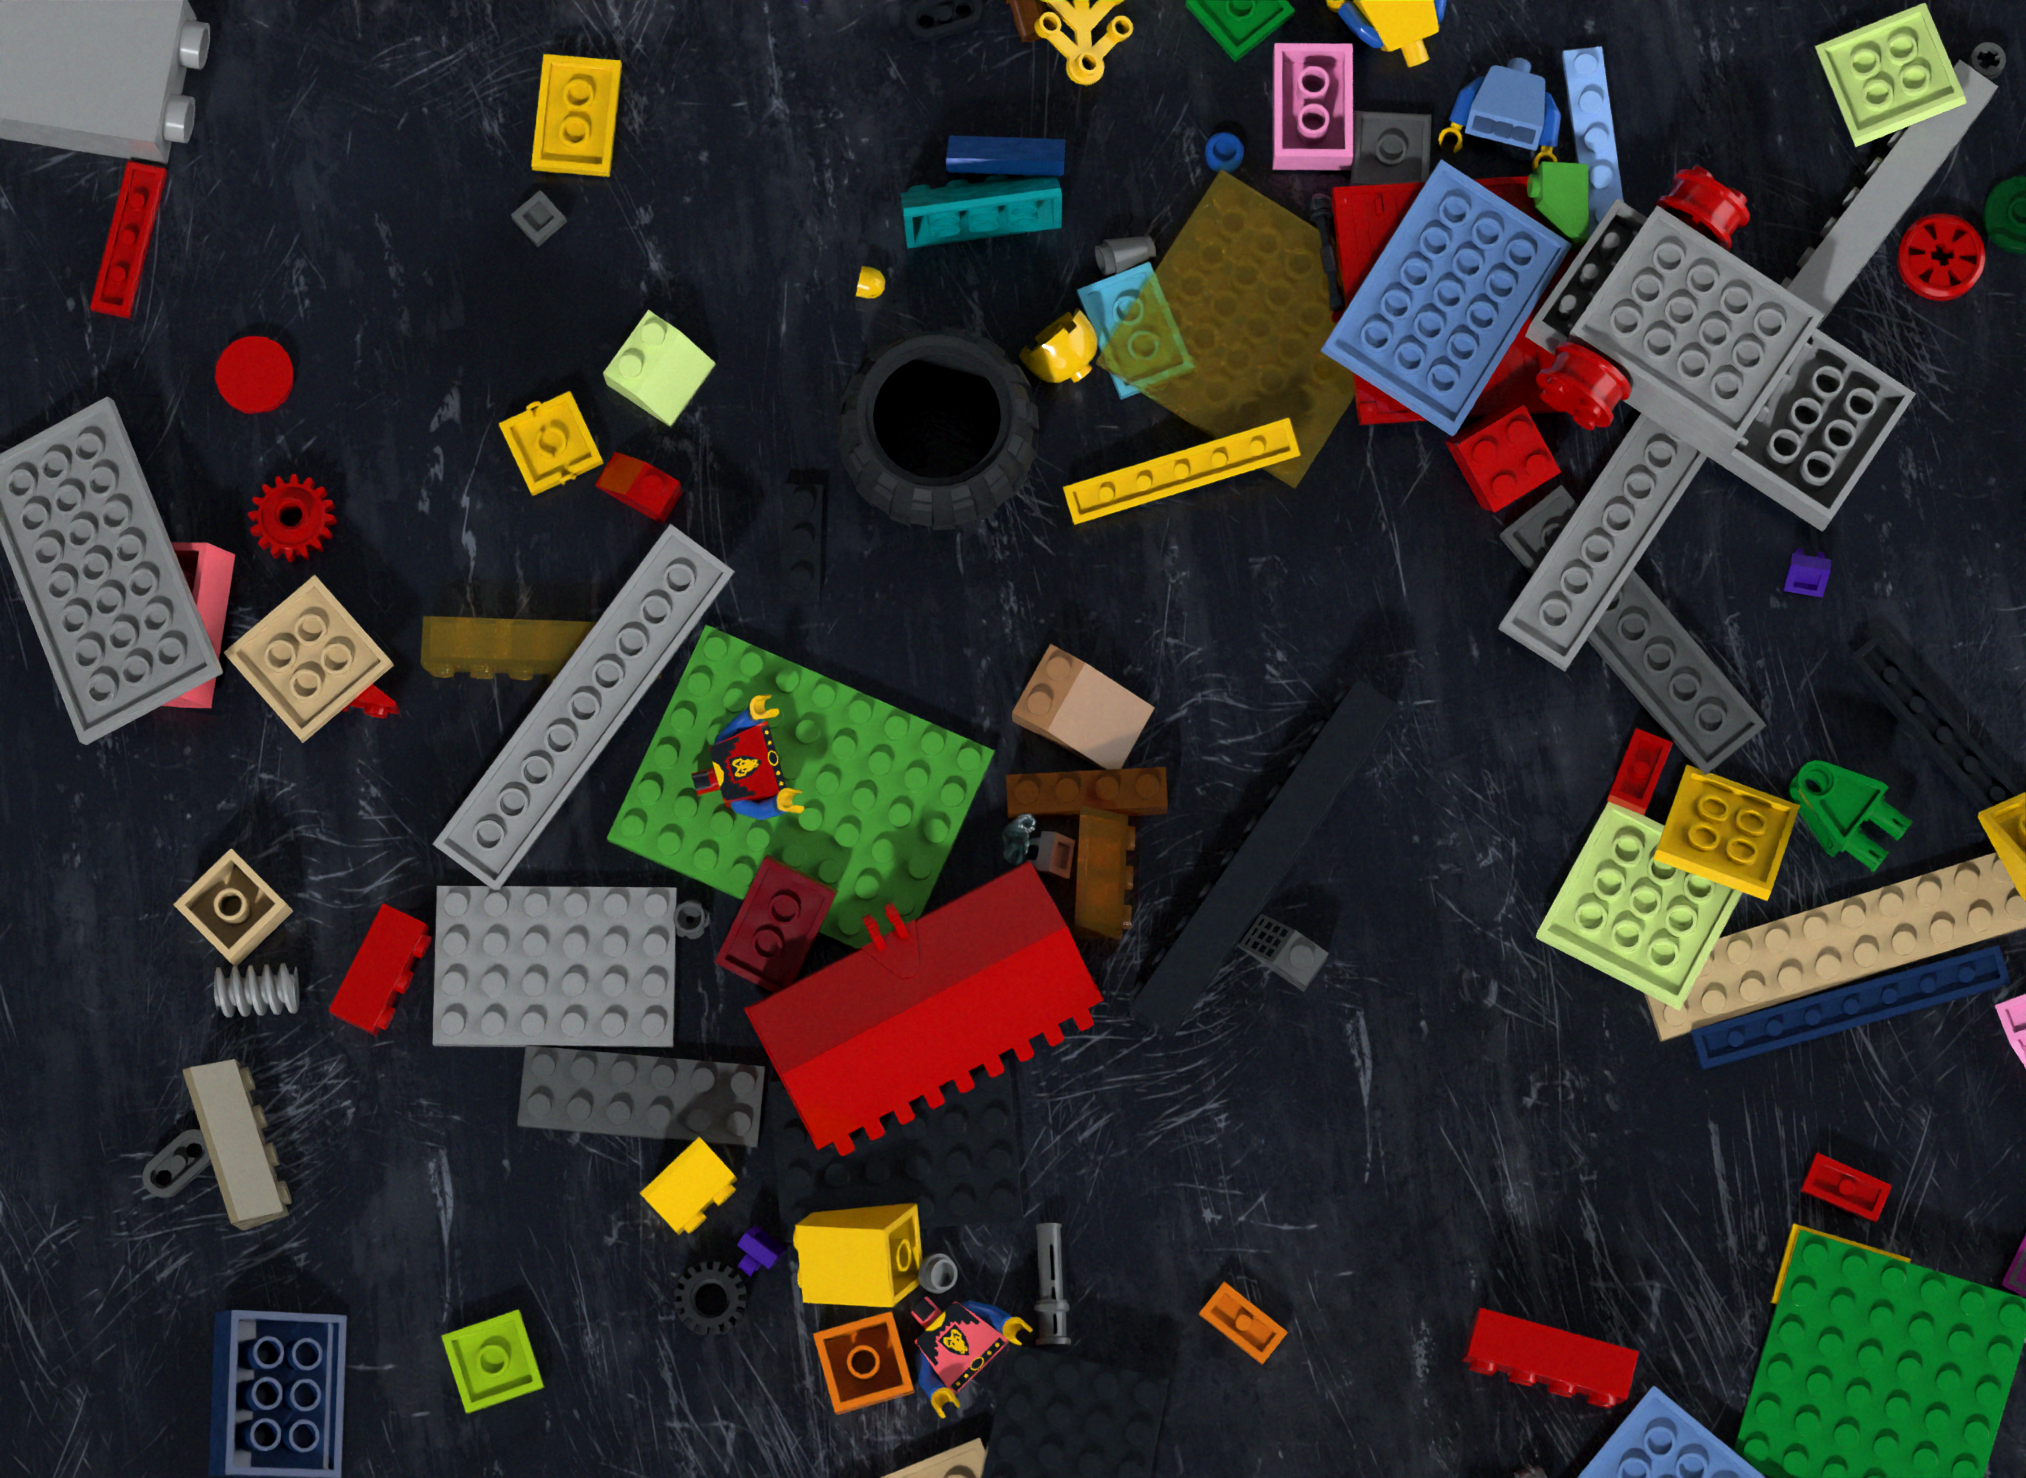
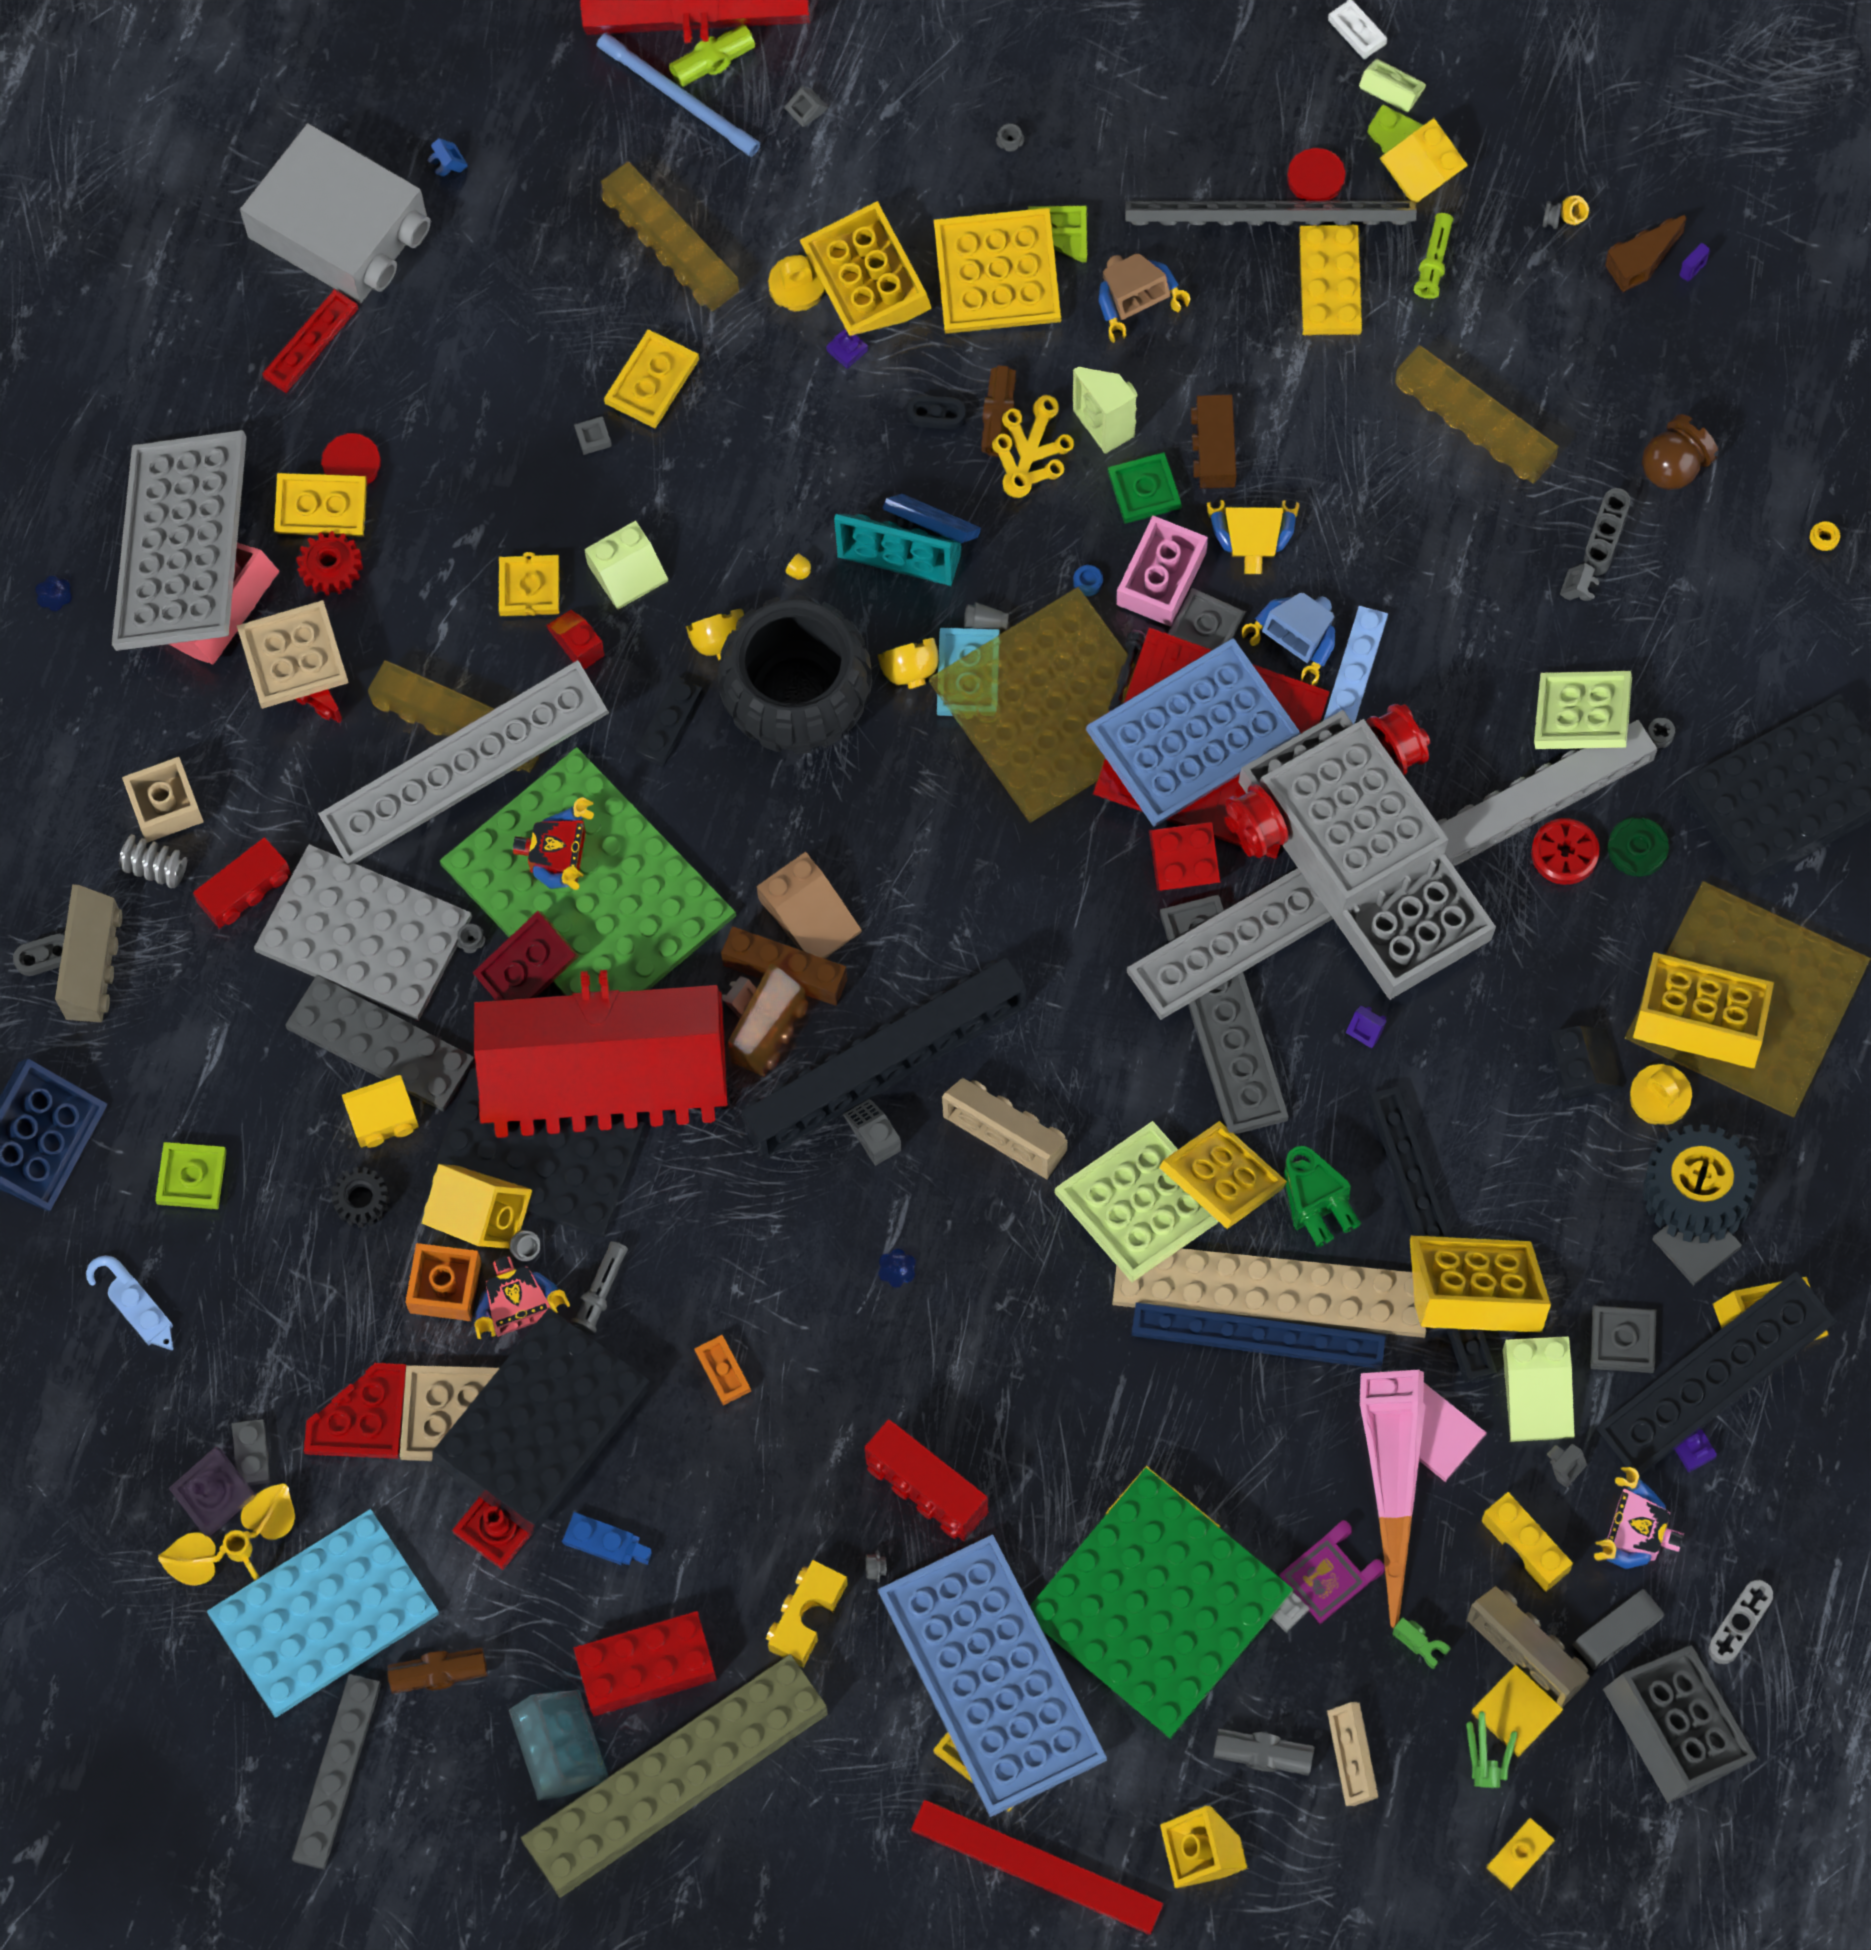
camera: 25 degrees right, 10 degrees down
(245, 448) = (320, 504): none -> yellow plate
(760, 1250) = (409, 1178): dark purple tile -> none
(812, 409) = (711, 633): none -> yellow cylinder
(1017, 838) = (722, 974): clear light blue arm -> none
(1182, 471) = (954, 775): yellow plate -> none
(1380, 1115) = (897, 1274): none -> clear blue plant
(1441, 881) = (1004, 1127): none -> tan slope
(1562, 199) = (1308, 698): bright green slope -> none
(1639, 771) = (1182, 1110): red plate -> none
(1845, 1188) = (1196, 1458): red plate -> none

